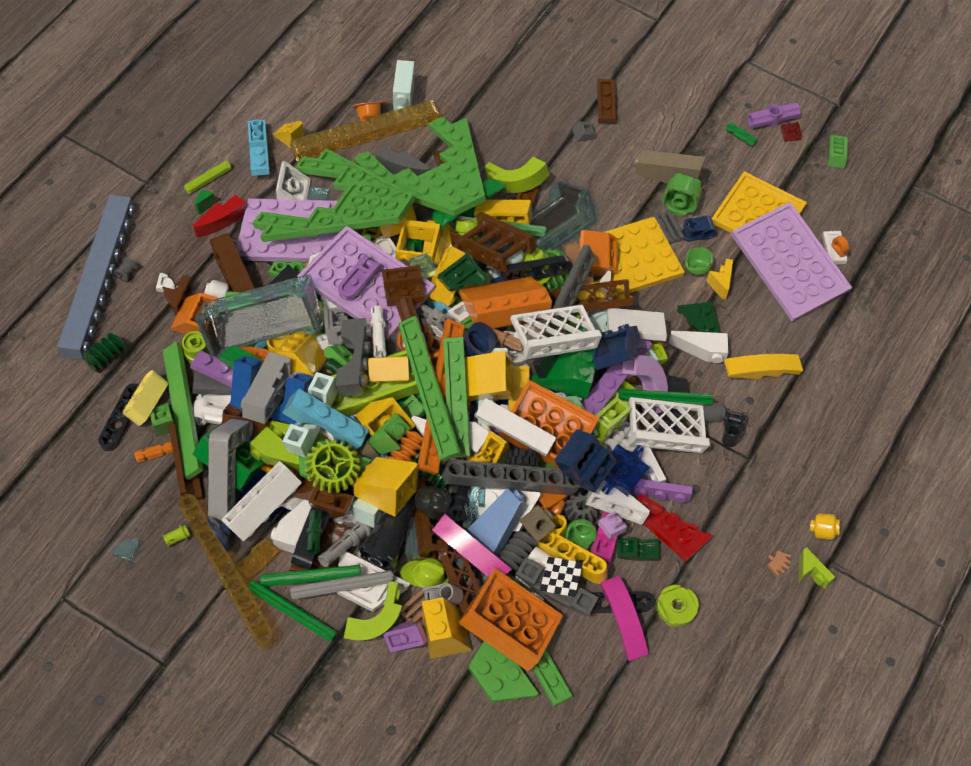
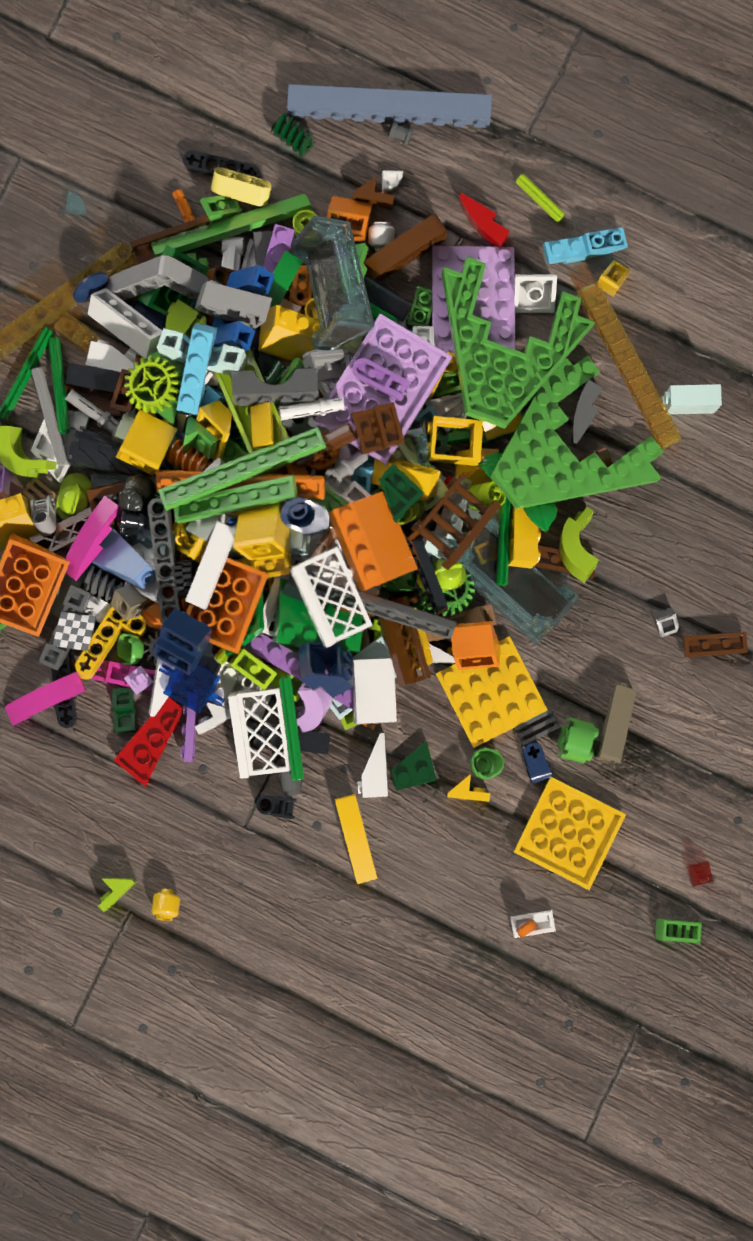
camera: 90 degrees right, 25 degrees up
(176, 535) = (92, 247): lime pin -> none
(204, 201) = (501, 198): green slope -> none
(314, 532) = (95, 380): dark green pin -> none
(317, 193) = (529, 324): clear light blue tile -> none
(368, 110) = (659, 365): orange piece -> none
(682, 596) = (53, 747): lime plate -> none
(741, 134) = (687, 811): green axle -> none
(773, 115) = (725, 864): medium lavender piece -> none
(779, 563) = (125, 855): nougat piece -> none
(791, 261) = (498, 869): lavender plate -> none

